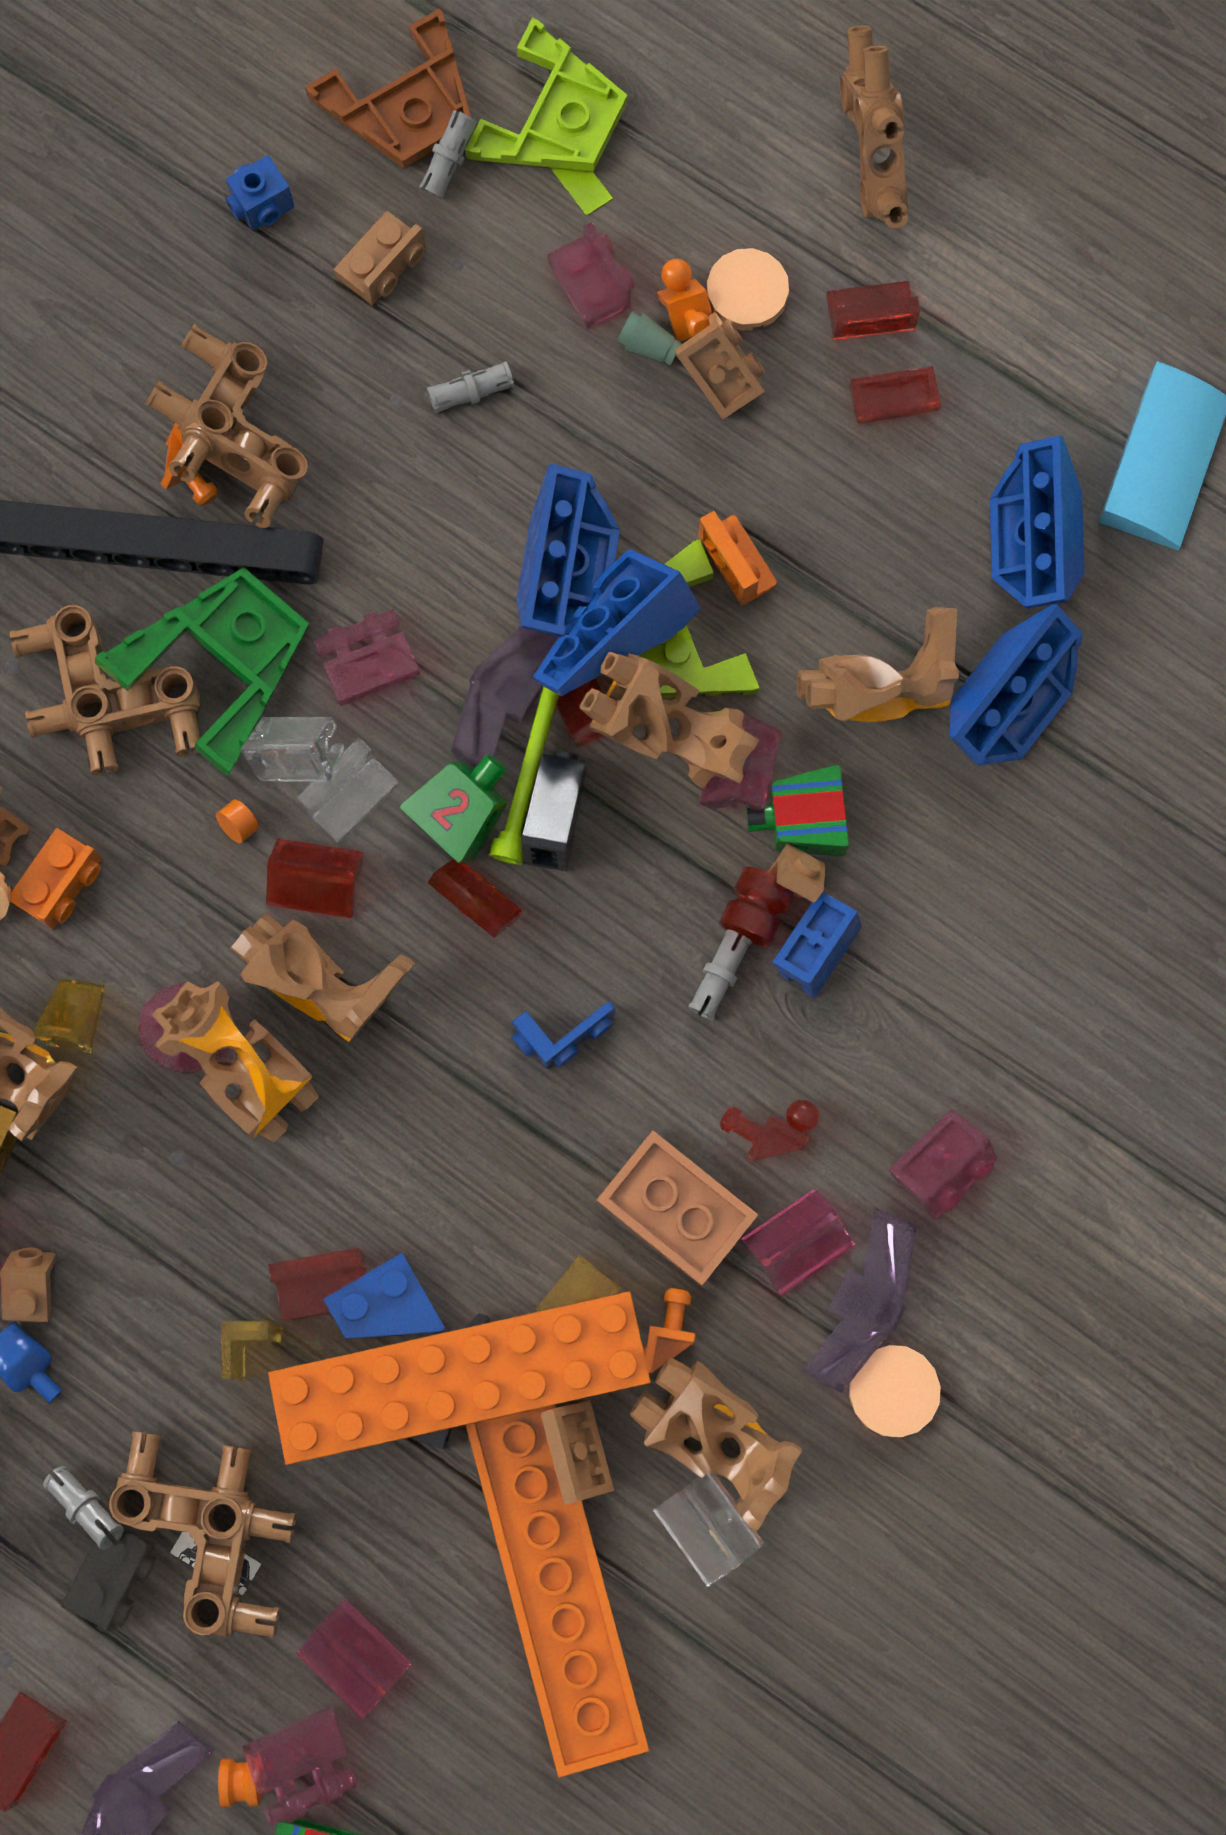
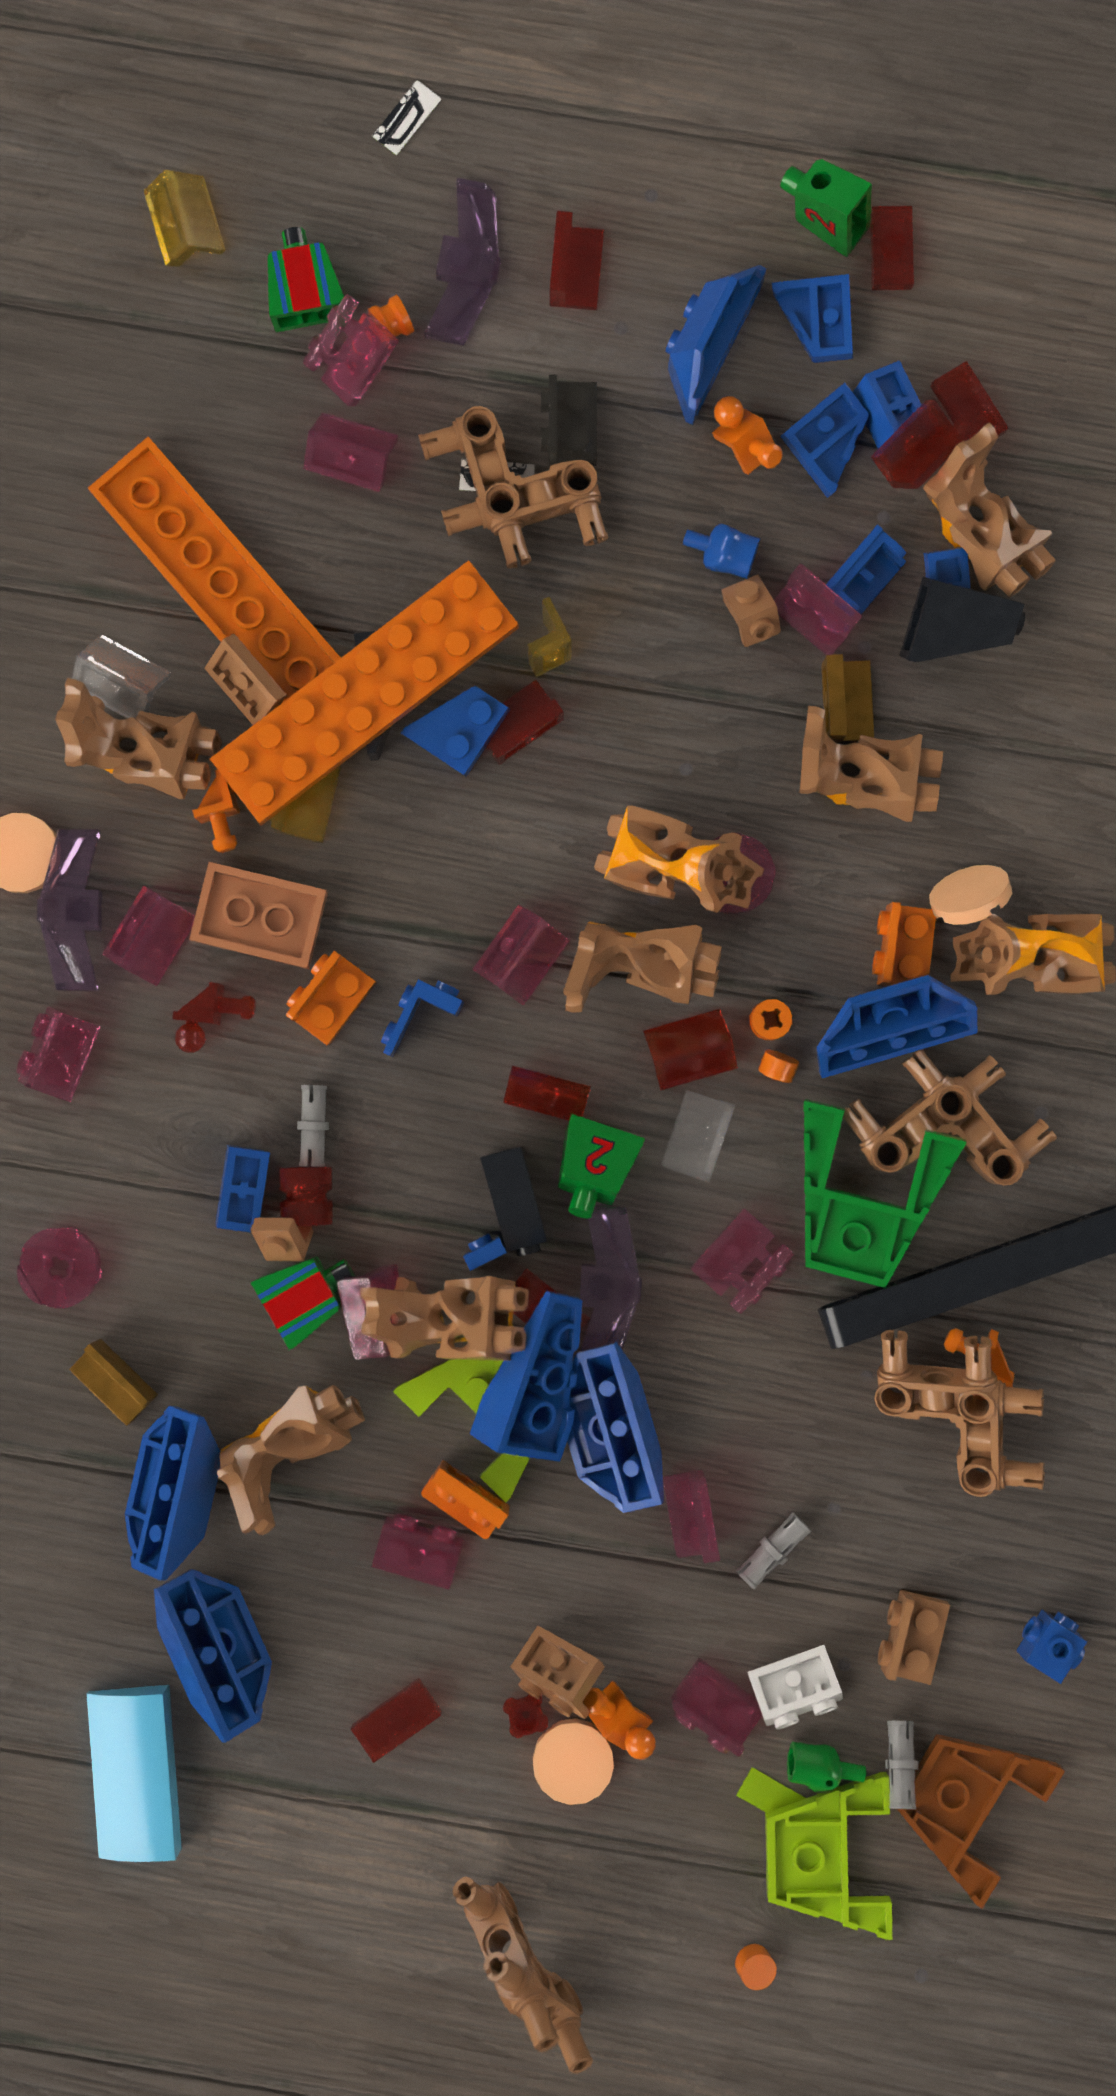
camera: 155 degrees right, 10 degrees up
(71, 1016) = (831, 839): clear yellow slope -> none
(83, 1507) = (616, 460): light grey pin -> none
(105, 803) = (894, 1024): none -> blue wedge
(228, 875) = (766, 1025): none -> orange wheel
(293, 749) = (760, 1146): clear hinge -> none
(434, 1047) = (521, 954): none -> clear pink panel
(508, 844) = (540, 1155): lime piece -> none
(509, 262) = (796, 1687): none -> white bracket
(523, 185) = (820, 1767): none -> green piece
(528, 447) = (691, 1515): none -> clear pink bracket
(608, 775) = (484, 1250): none -> blue plate
(643, 1092) = (329, 997): none -> orange bracket
(648, 339) = (638, 1670): sand green cone -> none
(666, 49) = (755, 1967): none -> orange piece
(780, 339) = (525, 1726): none -> clear red plate
(804, 534) = (418, 1551): none -> clear pink bracket
(872, 310) = (453, 1794): clear red panel -> none
(1028, 819) = (113, 1381): none -> pearl gold panel
(1049, 932) = (68, 1245): none -> clear pink plate

